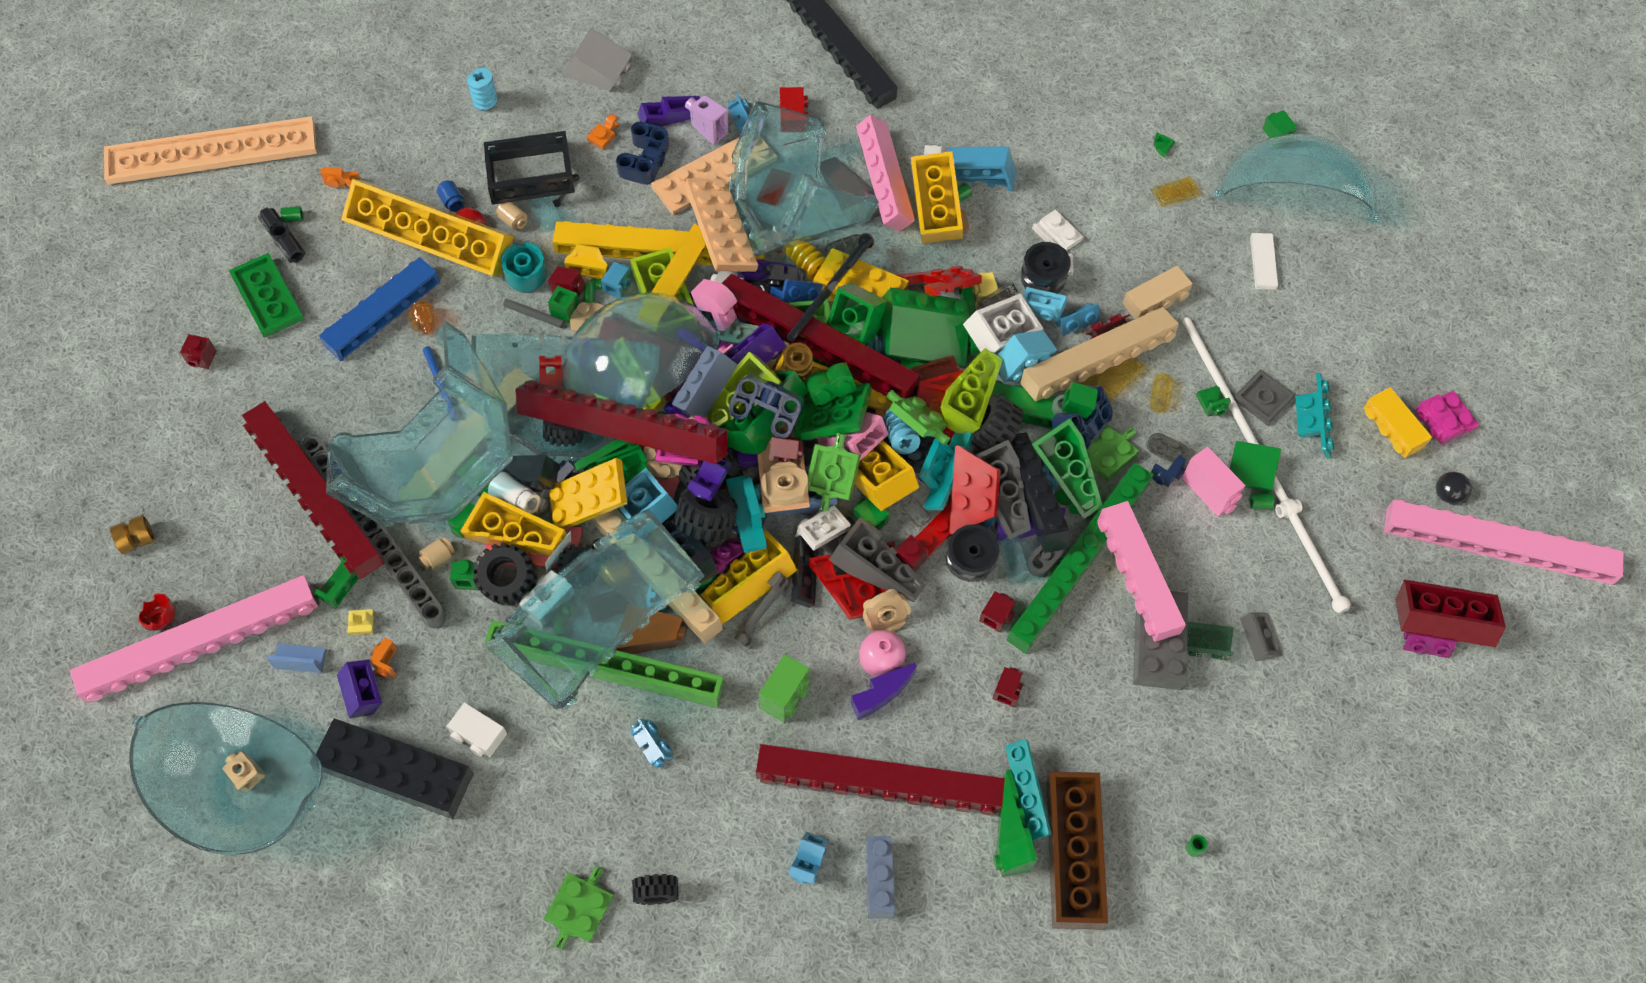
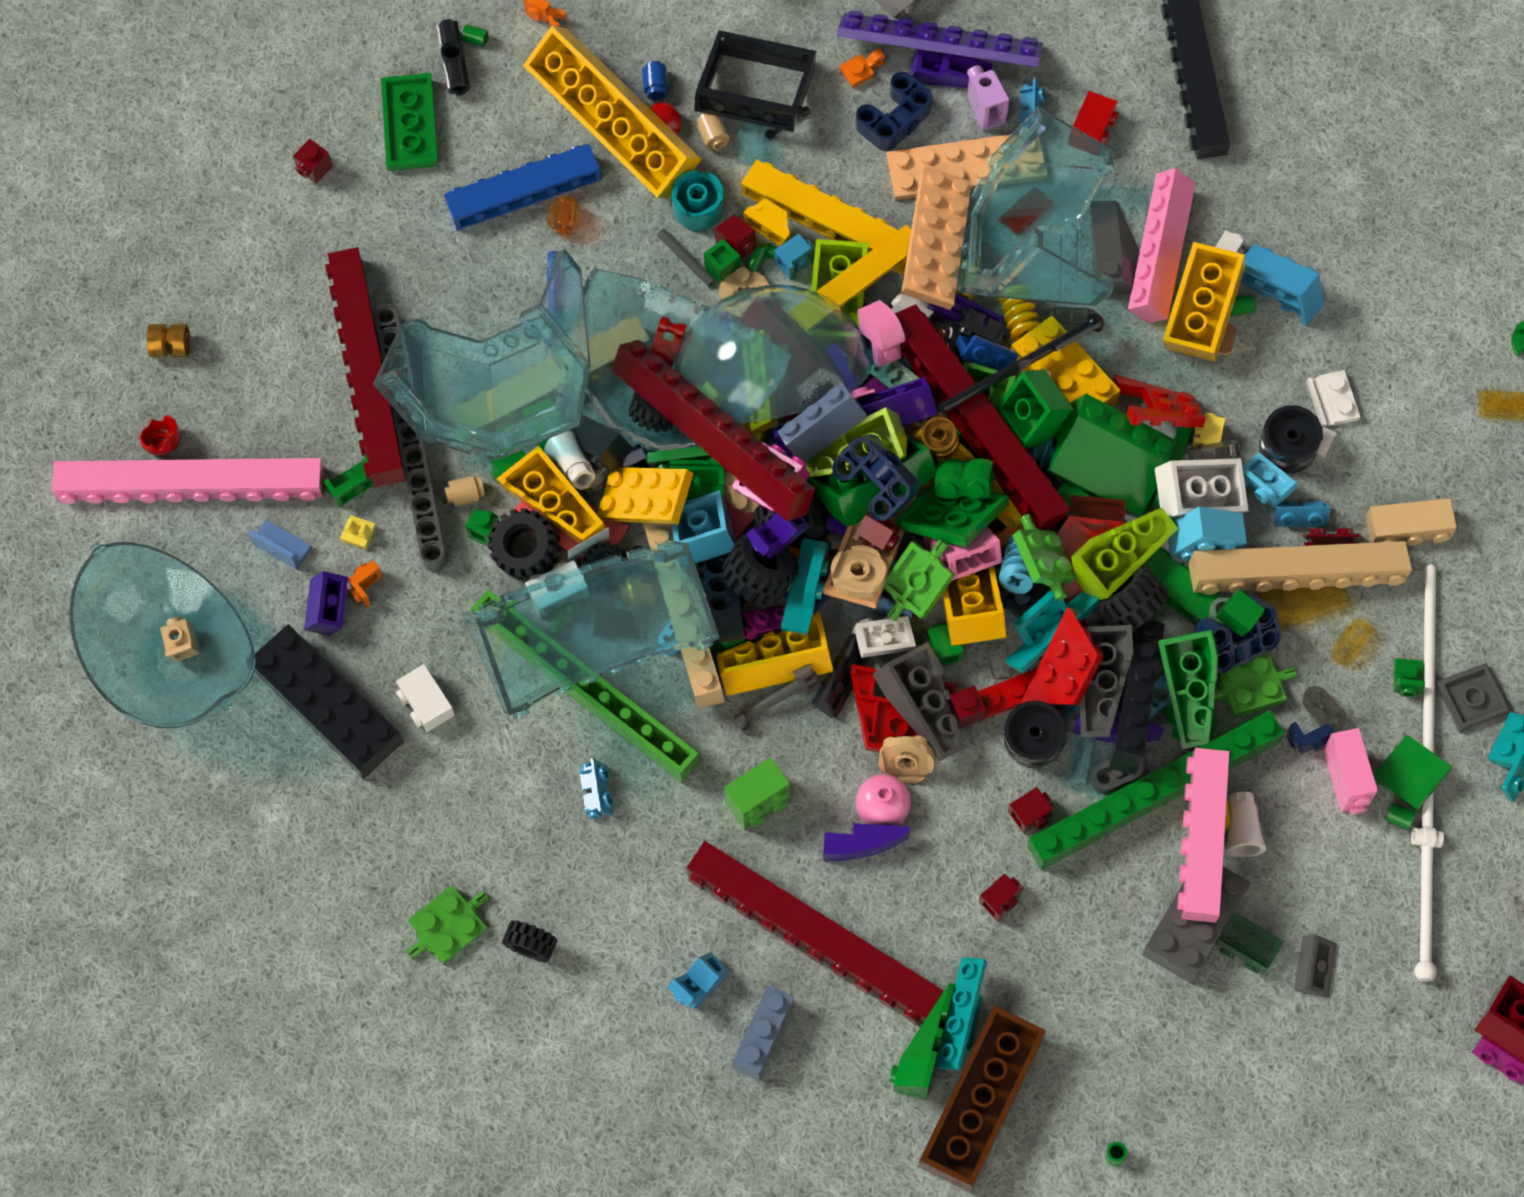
camera: 30 degrees right, 5 degrees up
(647, 92) = (939, 39): none -> dark purple plate
(661, 633) = (656, 677): dark orange slope -> none
(1167, 561) = (1244, 831): none -> white plant

